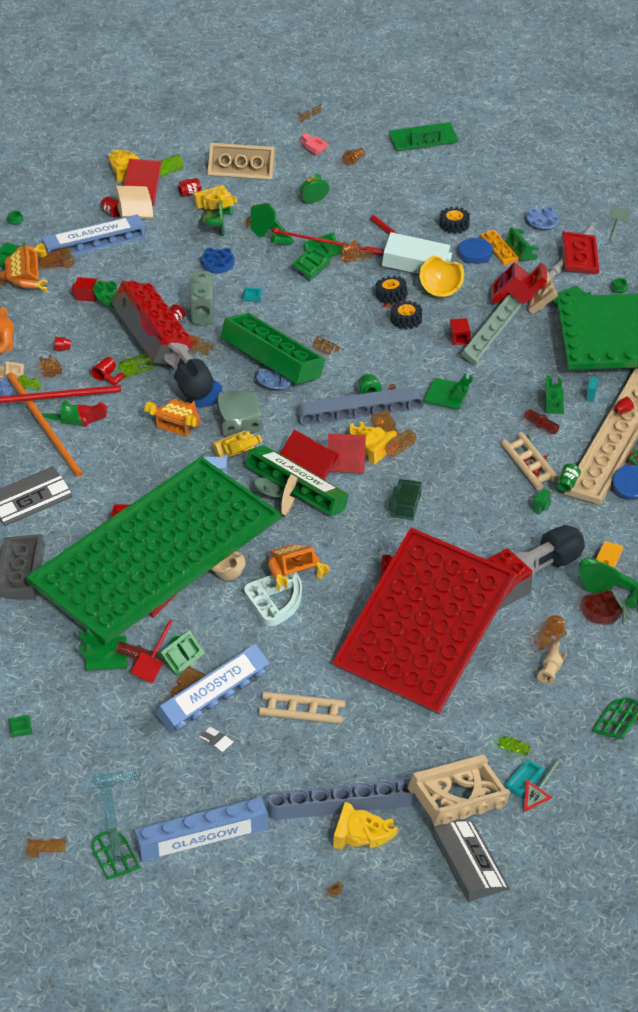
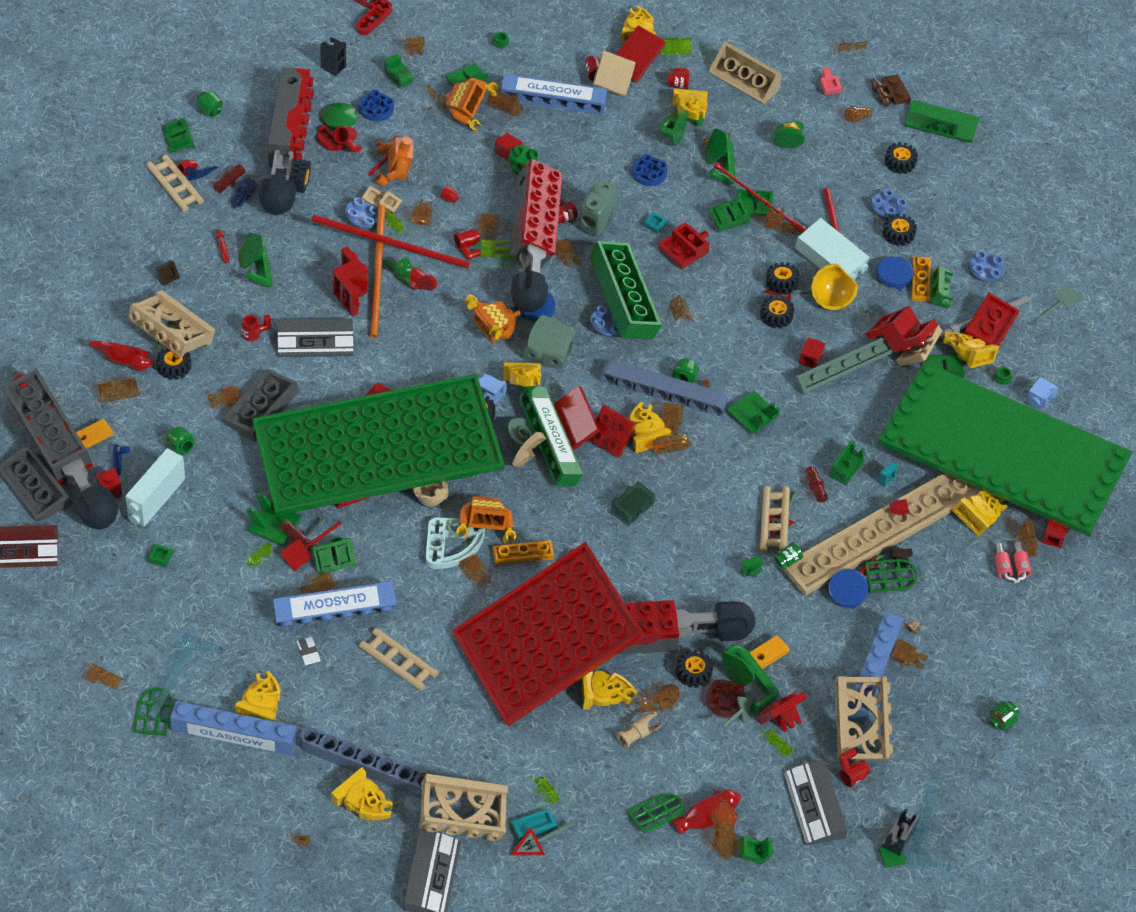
camera: 25 degrees right, 10 degrees up
(29, 438) = (350, 281): none -> red bracket
(113, 350) = (488, 224): none -> clear orange plate
(114, 680) = (264, 552): none -> clear neon green piece
(206, 792) = (260, 699): none -> yellow piece
(292, 299) = (685, 245): none -> red plate
(310, 608) = (474, 567): none -> clear orange plate
(342, 578) = (514, 552): none -> light orange tile
(365, 131) = (894, 88): none -> reddish brown plate
(413, 172) = (901, 158): none -> black wheel
(430, 206) = (888, 203): none -> medium blue dish
(499, 647) = (604, 689): none -> yellow piece
(558, 597) = (694, 661): none -> black wheel
(580, 276) = (970, 349): none -> yellow piece

